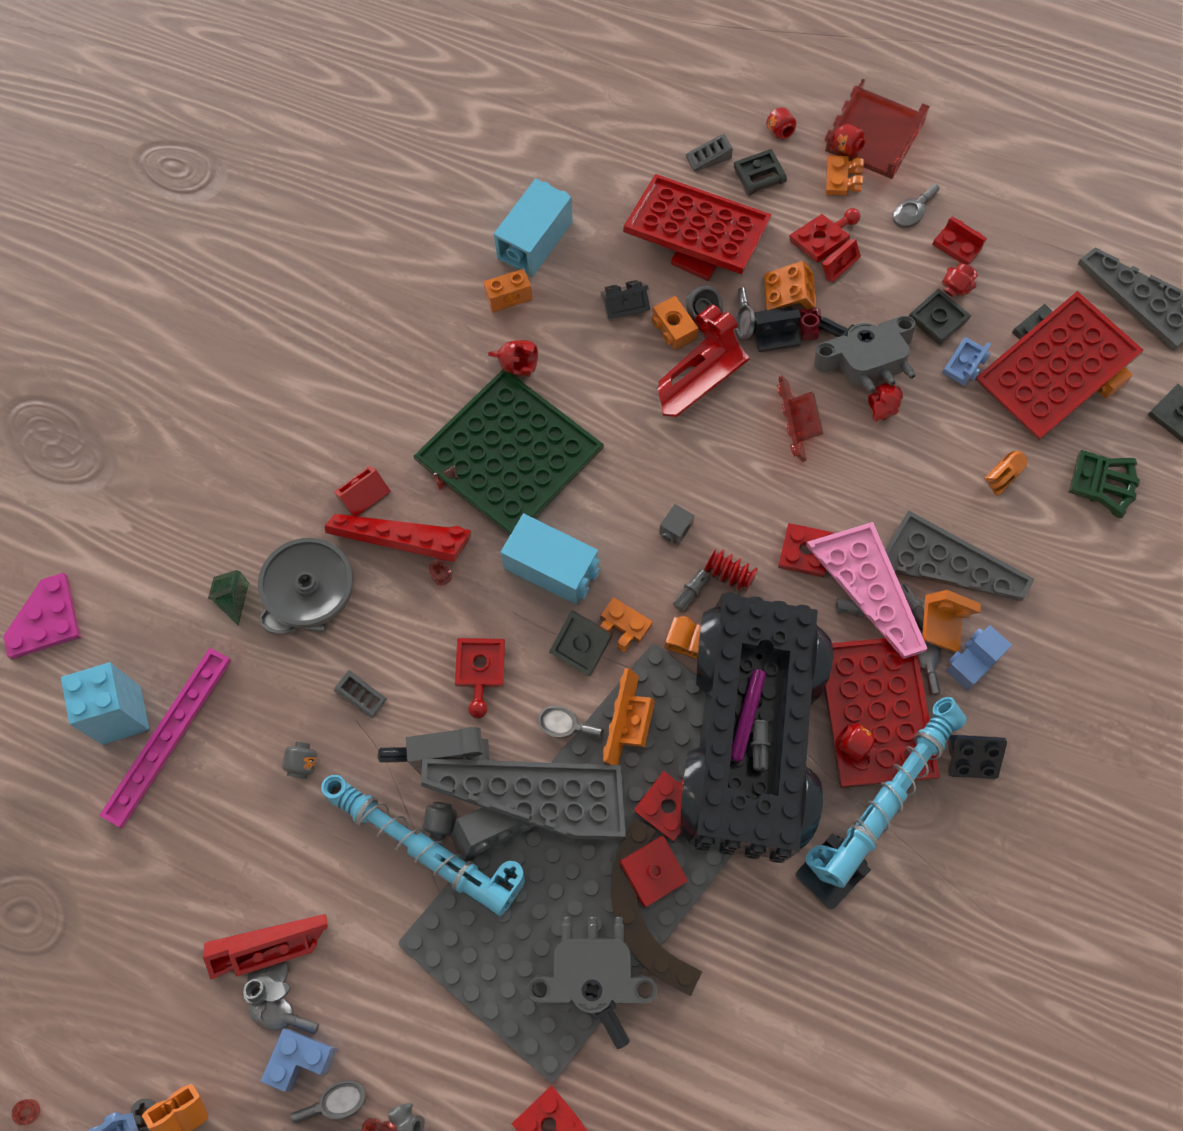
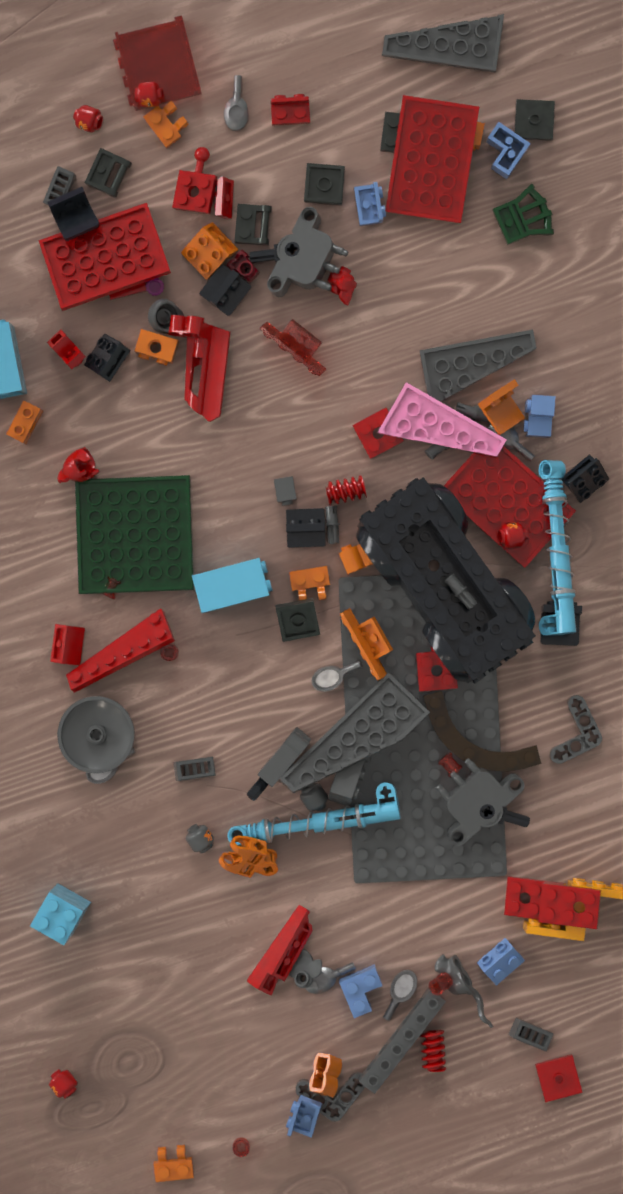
camera: 45 degrees left, 20 degrees up
(165, 738) = (107, 896): dark pink plate -> none
(229, 593) = (53, 783): clear green slope -> none
(322, 813) = (250, 857): none -> orange piece
(470, 676) = (260, 688): red plate -> none
(597, 266) = (66, 349): none -> red brick
(598, 908) = (449, 764): none -> clear red bush
(653, 871) = (461, 716): red plate -> none
(663, 573) = (305, 527): none -> black bracket
(703, 172) = (73, 214): none -> black bracket
(717, 279) = (155, 287): none -> magenta piece
(745, 316) = (197, 299): flat silver piece -> none
(747, 715) = (437, 579): magenta axle -> none
(756, 1011) = (582, 738): none -> dark grey beam
(841, 295) = (246, 224): none -> pearl dark grey plate
(959, 280) = (315, 143): red head -> none
(1006, 471) = (458, 266): orange arm -> none
(1139, 412) = (511, 148): none -> medium blue brick

